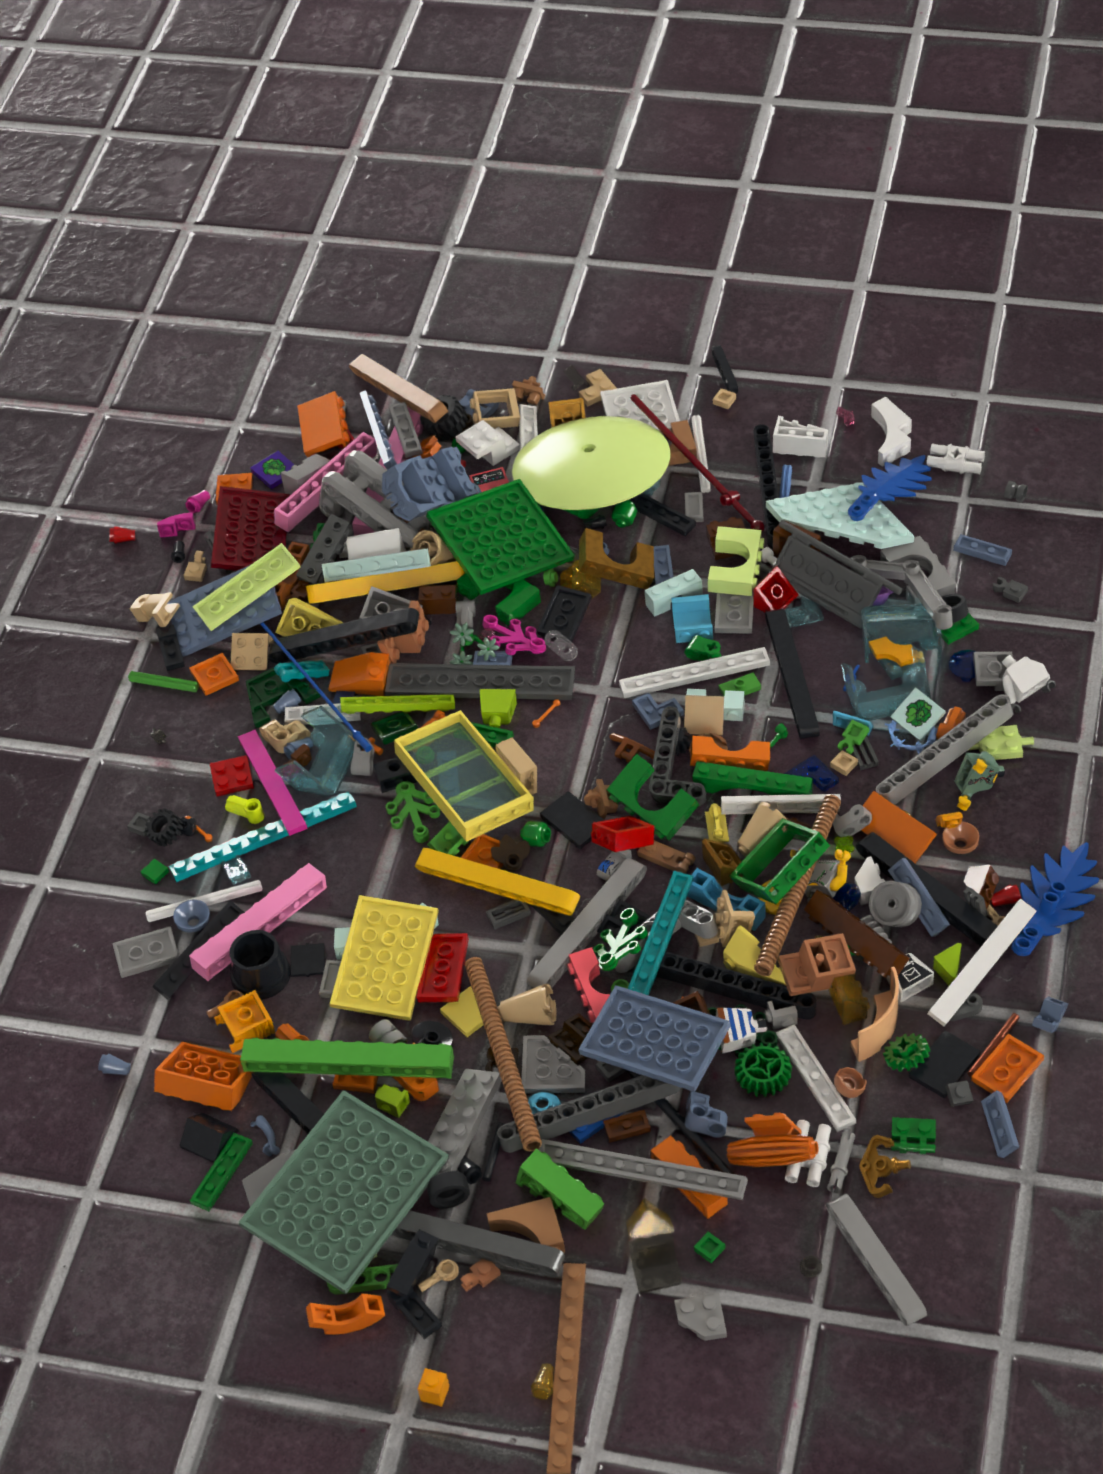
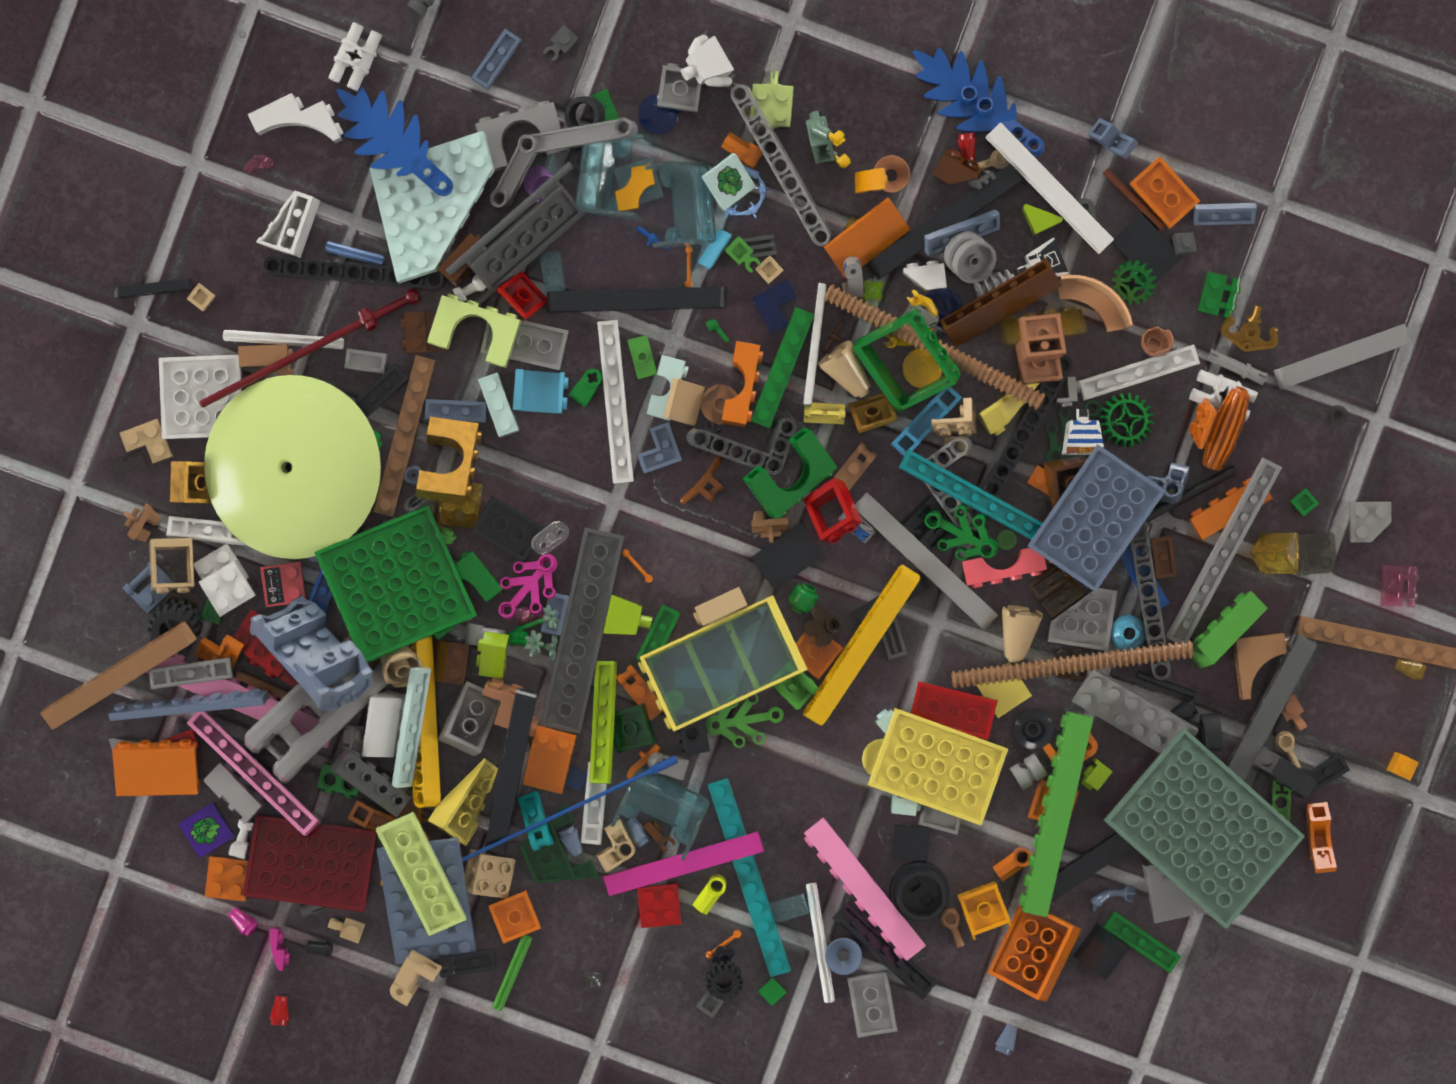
camera: 85 degrees left, 40 degrees up
(262, 486) = (241, 846): none -> white leg
(444, 618) = (493, 654): none -> lime brick
(627, 540) = (404, 436): none -> medium nougat plate
(634, 1349) = (1392, 586): none -> clear pink plate
(847, 705) = (688, 283): none -> orange hinge

